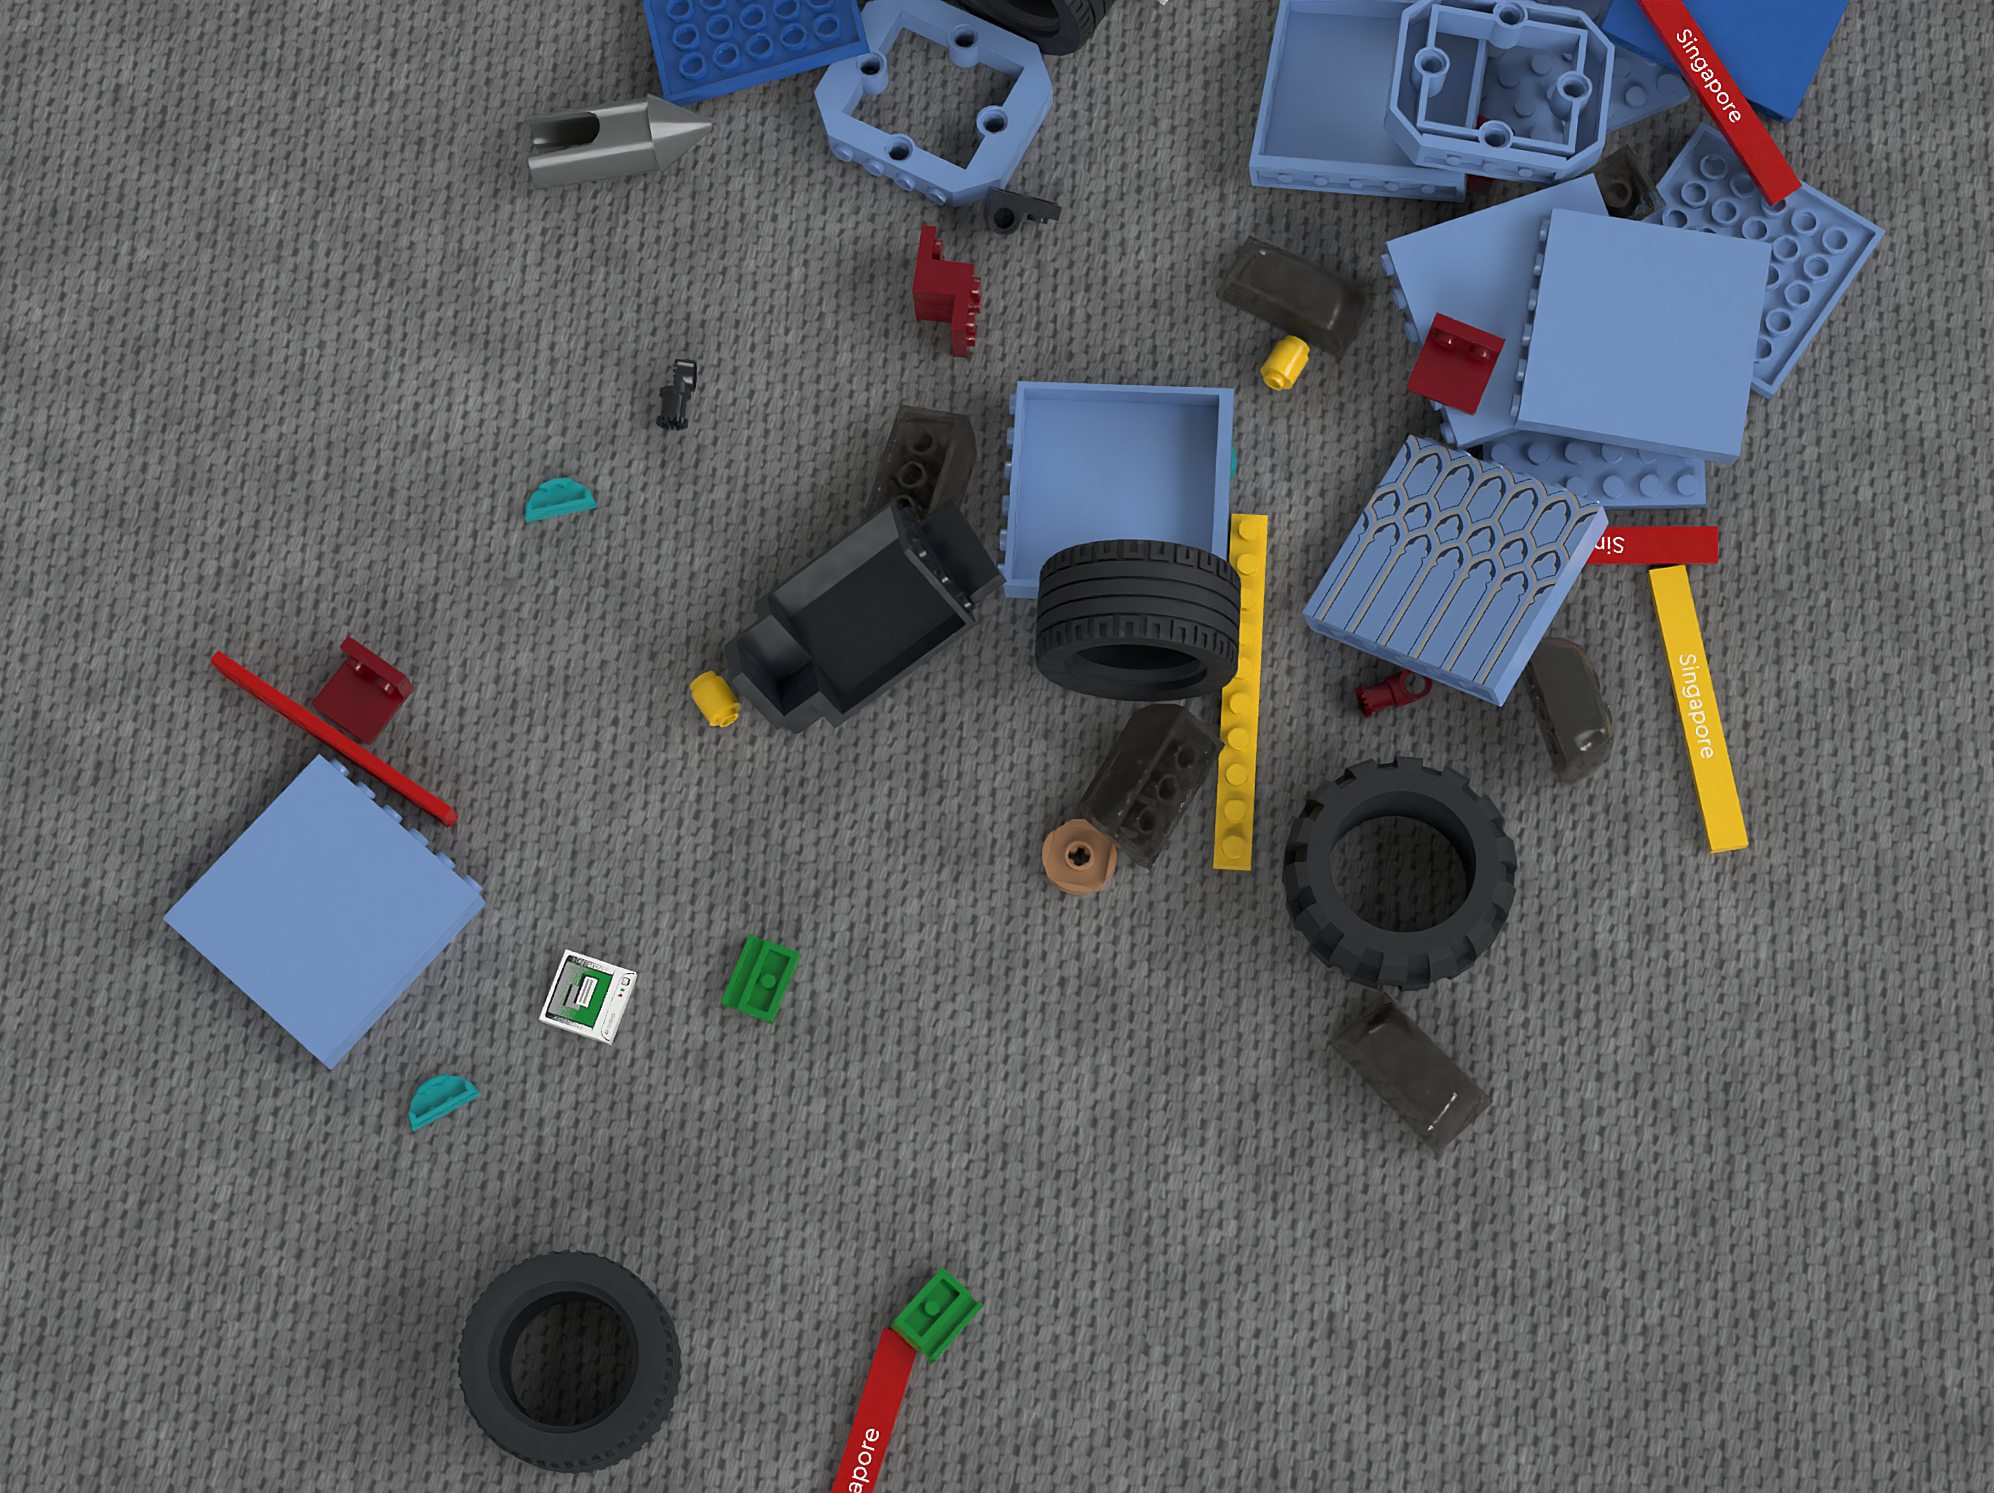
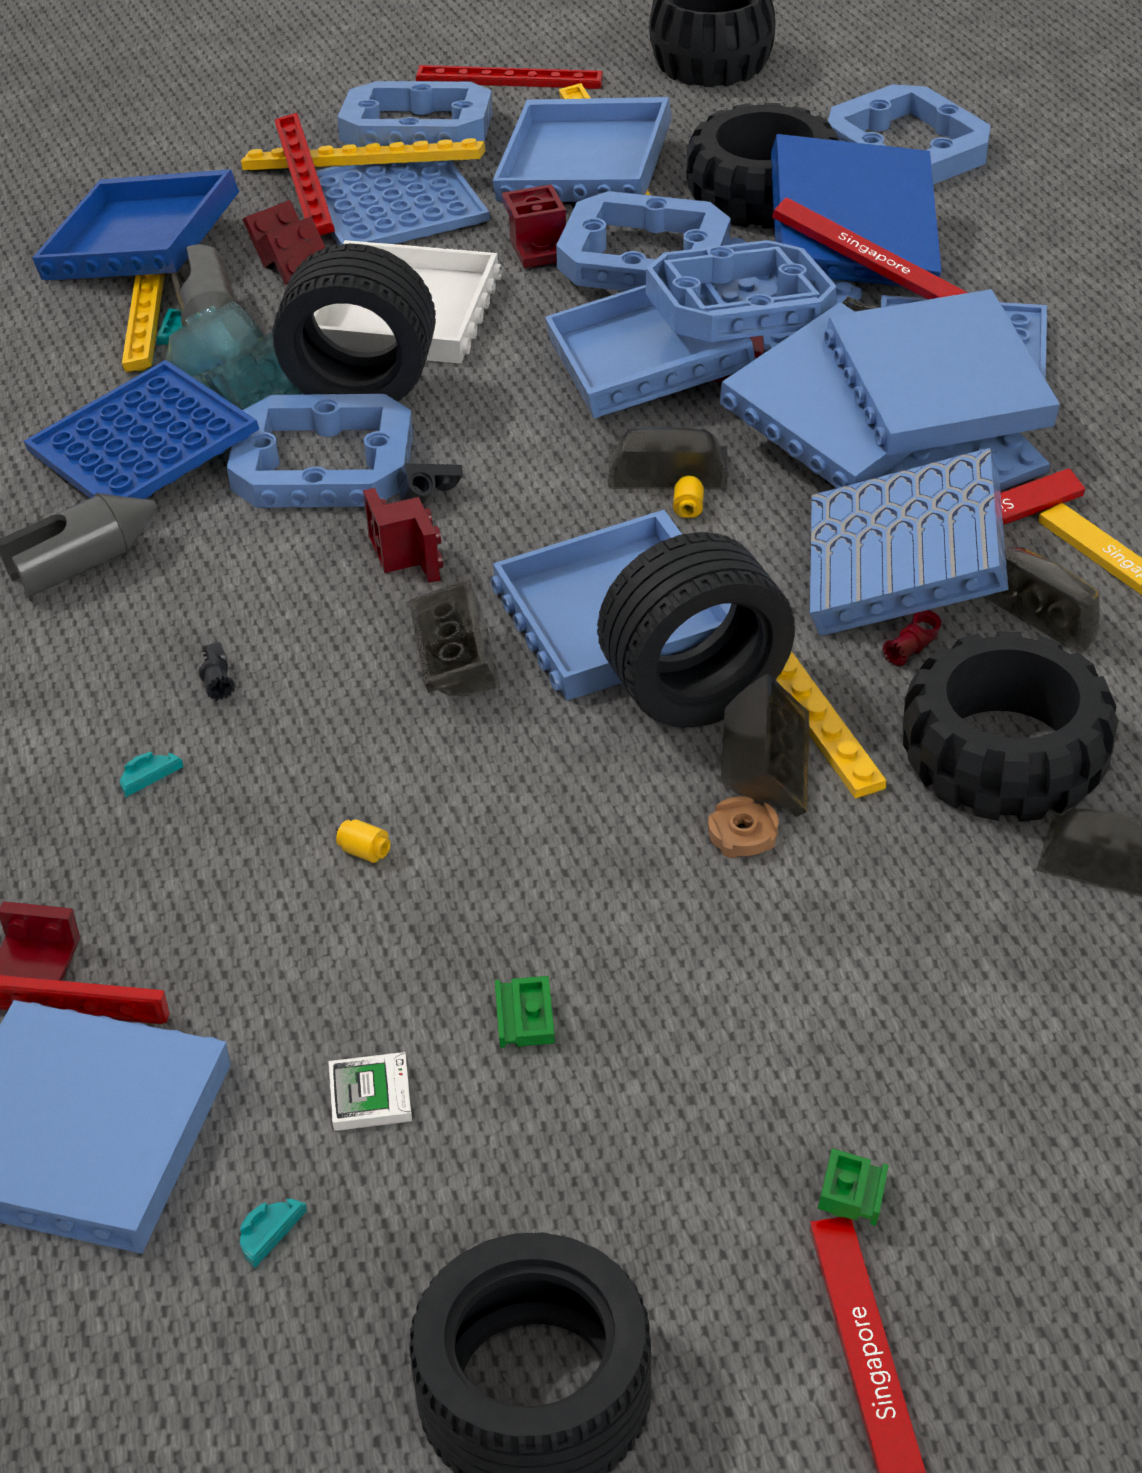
camera: 30 degrees left, 30 degrees down
(862, 616) = (461, 725): black panel -> none
(1455, 364) = (821, 419): dark red bracket -> none

